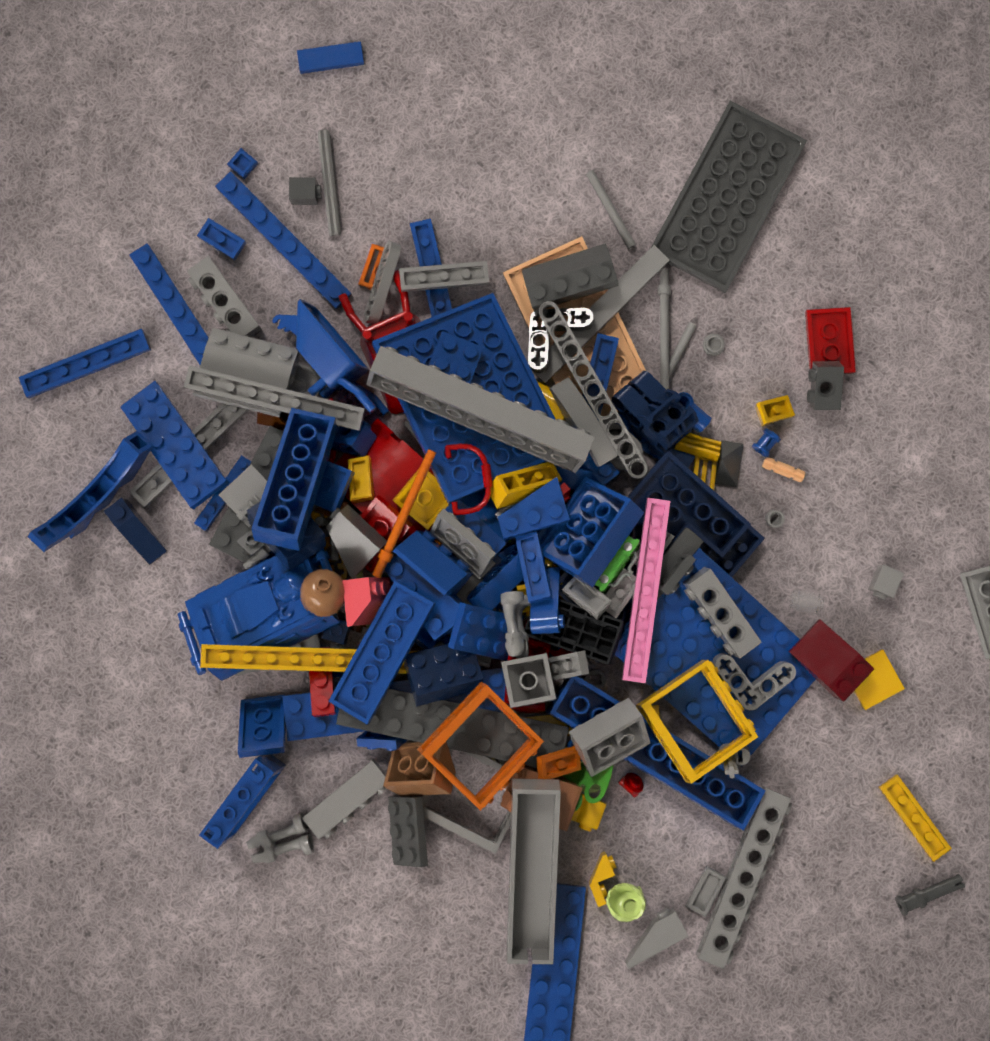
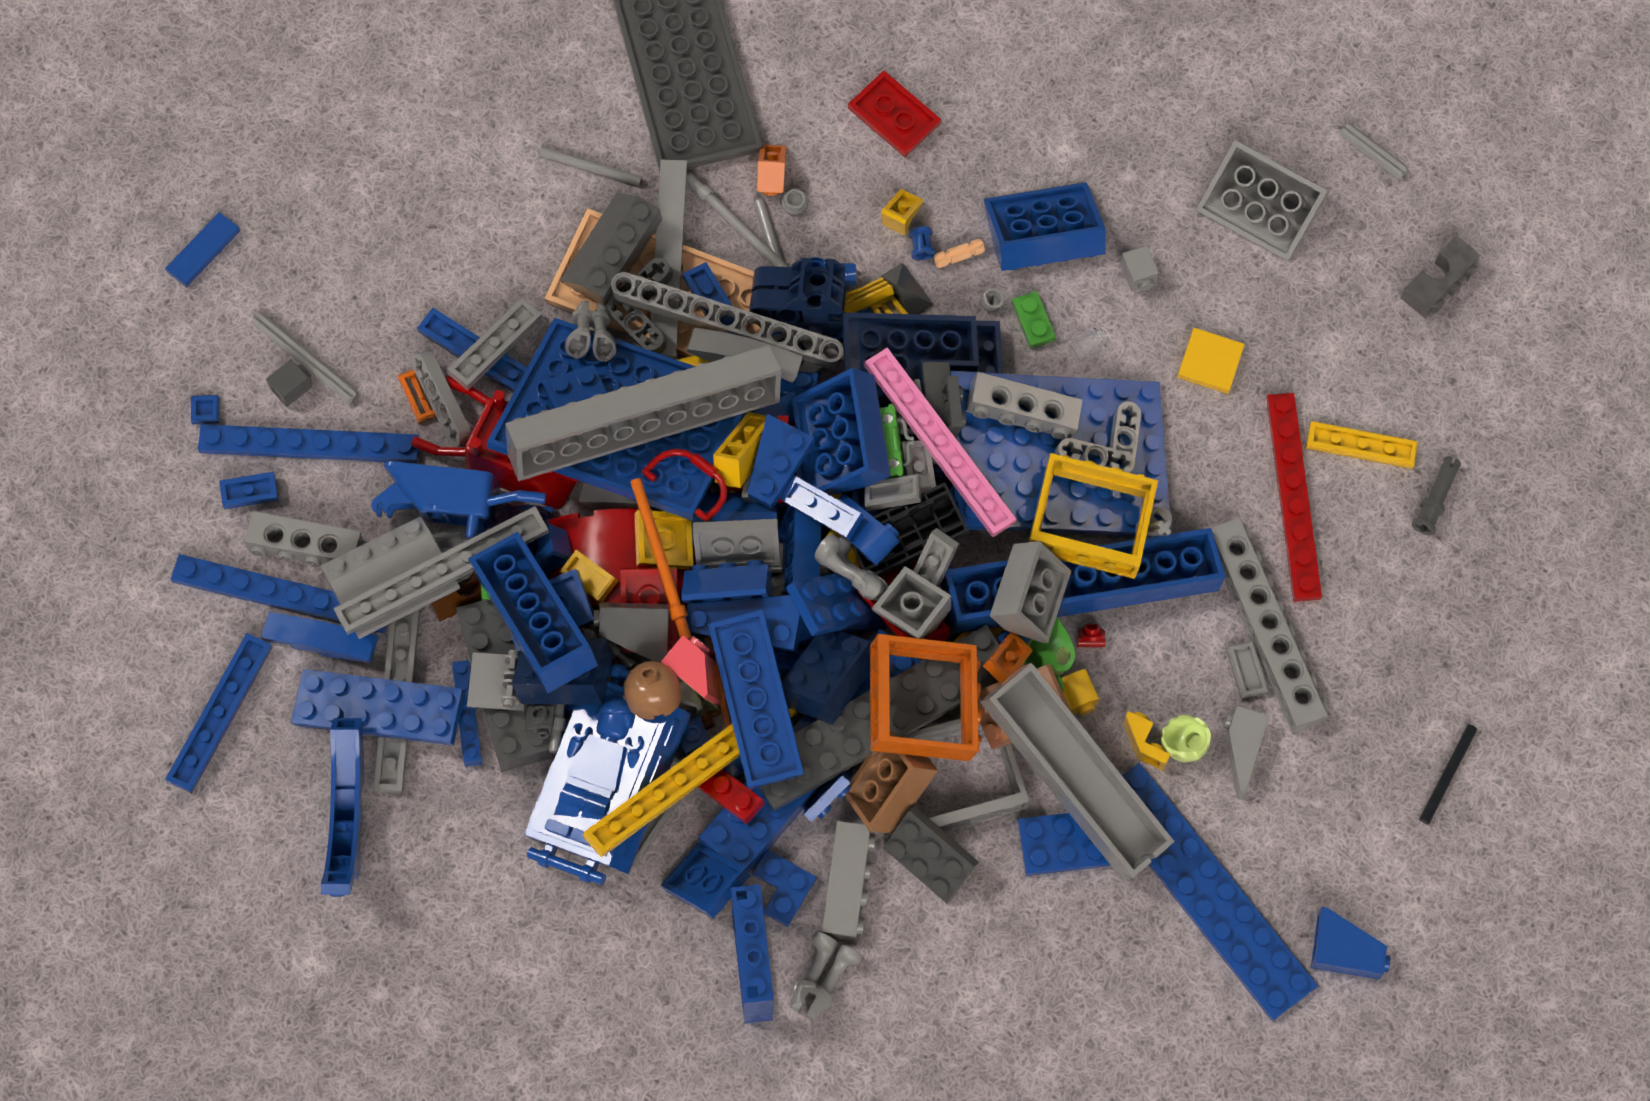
camera: 50 degrees left, 15 degrees down
(135, 530) = (412, 819): dark blue slope -> none
(177, 365) = (319, 637): none -> blue slope
(316, 766) = (791, 886): none -> blue plate
(487, 889) = (1056, 845): none -> blue plate
(489, 323) = (579, 340): none -> light grey piece
(719, 310) = (771, 169): none -> orange slope
(788, 553) = (1033, 319): none -> bright green plate
(831, 396) = (940, 153): dark grey brick -> none
(831, 660) = (1158, 371): dark red slope -> none
(840, 811) = (1293, 497): none -> red plate
(854, 500) = (1045, 226): none -> blue slope

